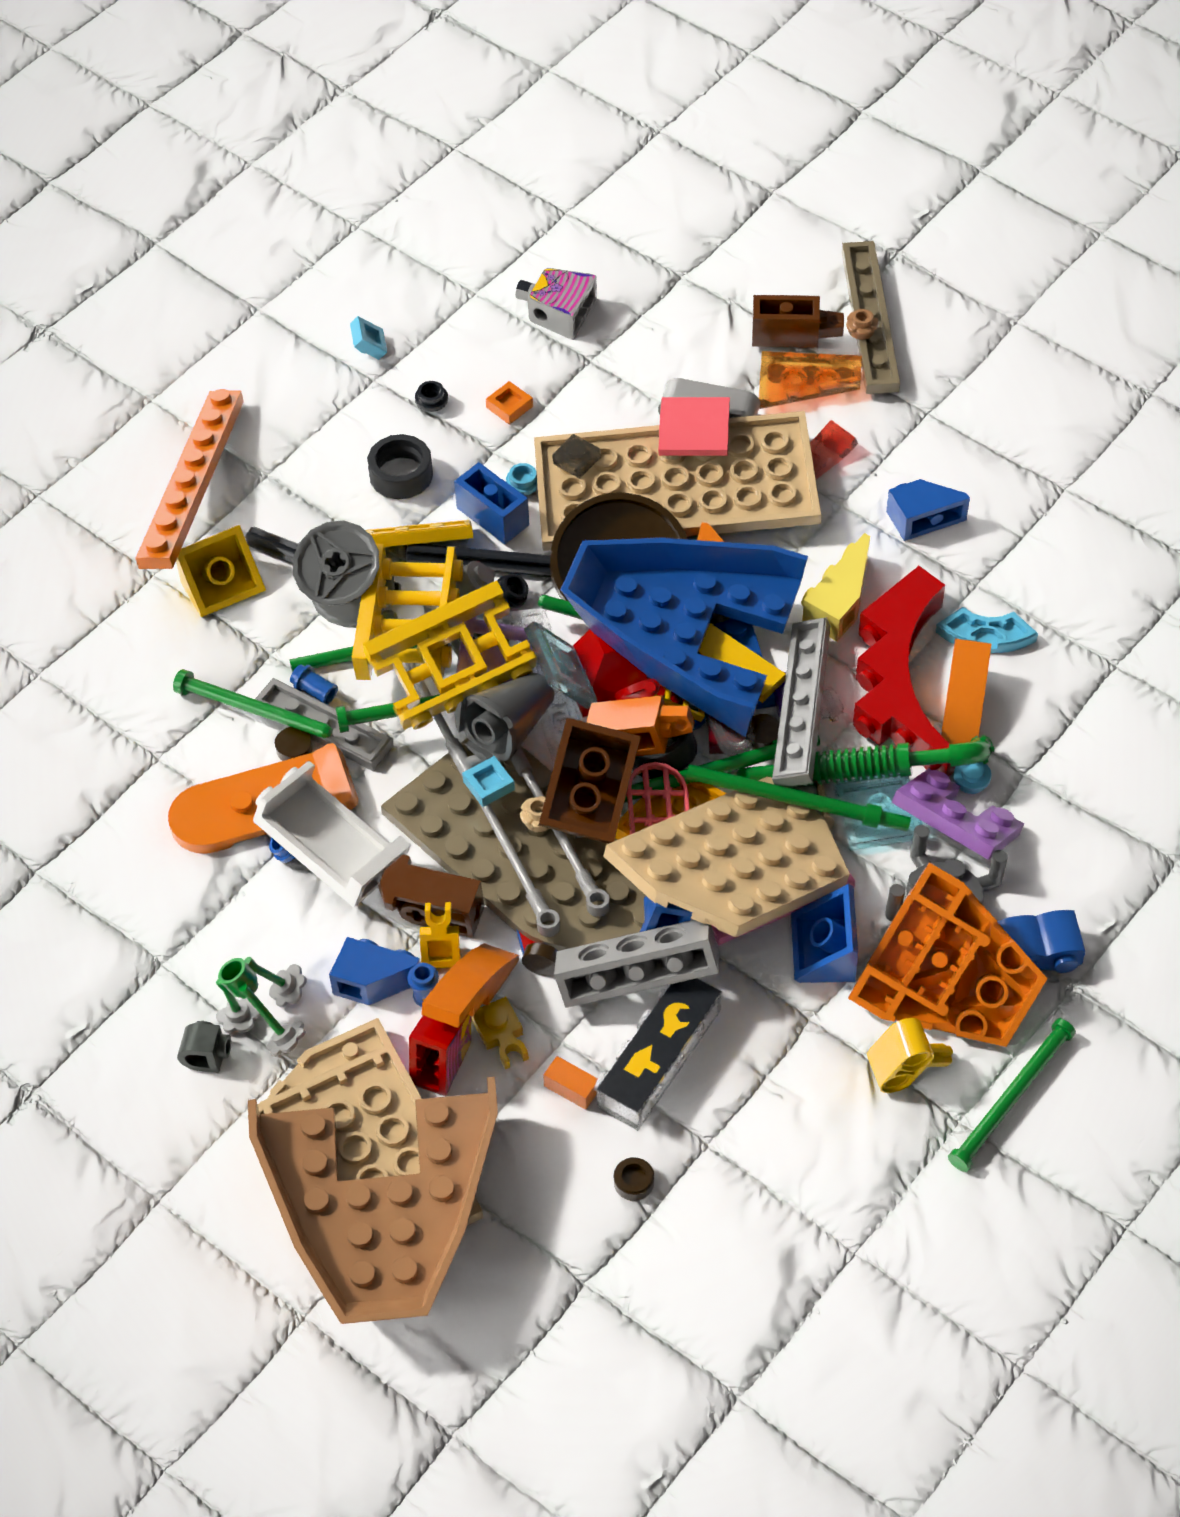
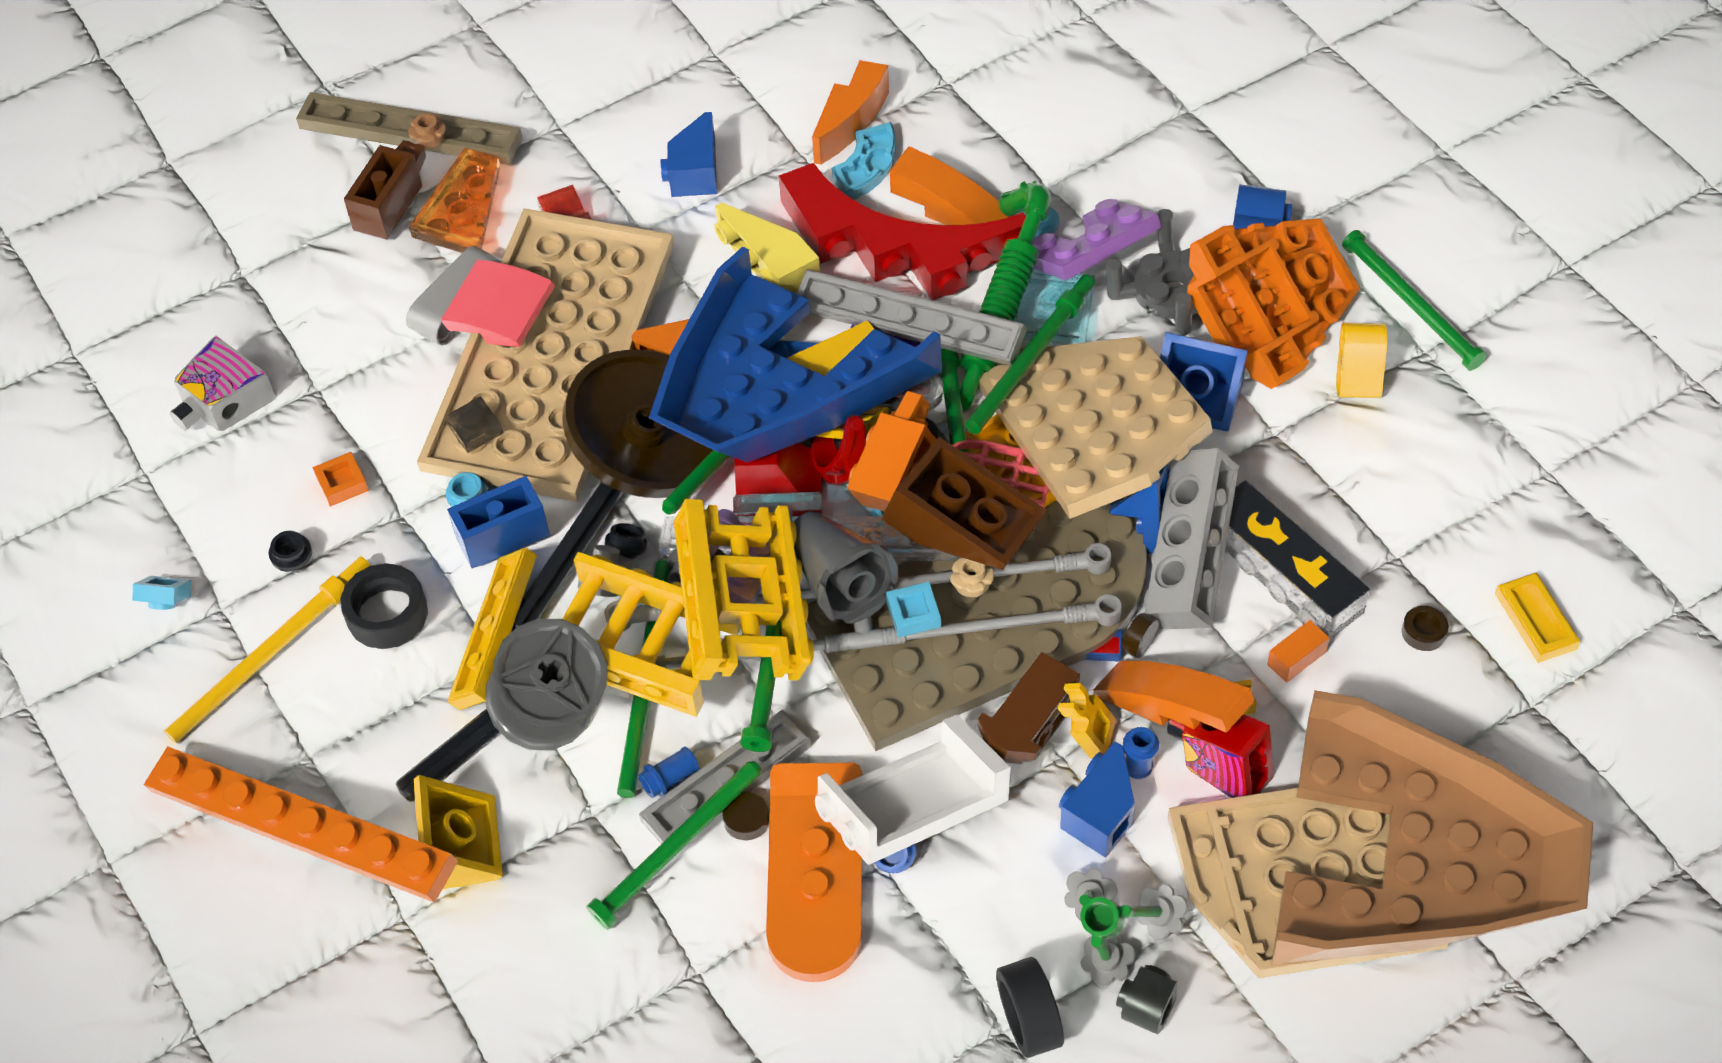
camera: 70 degrees left, 0 degrees up
(158, 948) = (1030, 1007): none -> black tyre
(342, 416) = (329, 594): none -> yellow bar
(678, 1268) = (1537, 617): none -> yellow tile
(1032, 598) = (850, 110): none -> orange slope

